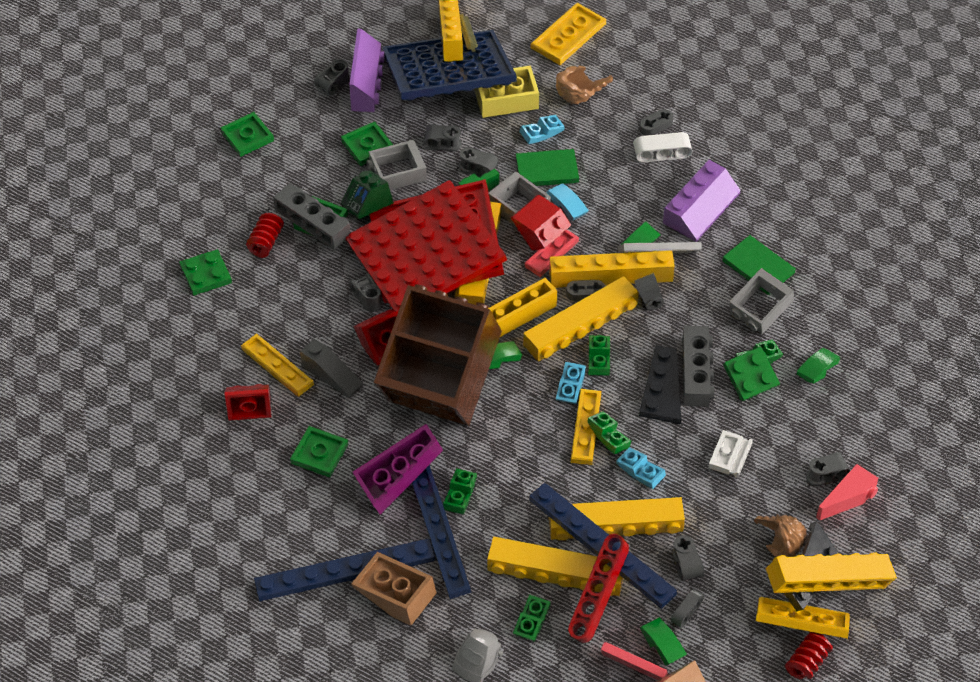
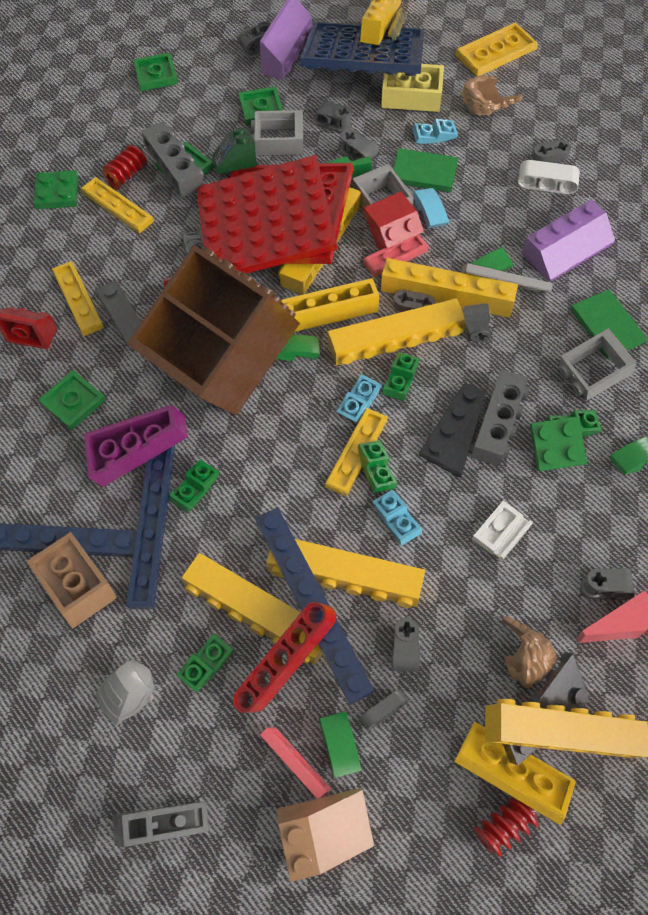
camera: 20 degrees right, 10 degrees up
(271, 272) = (117, 205): none -> yellow tile

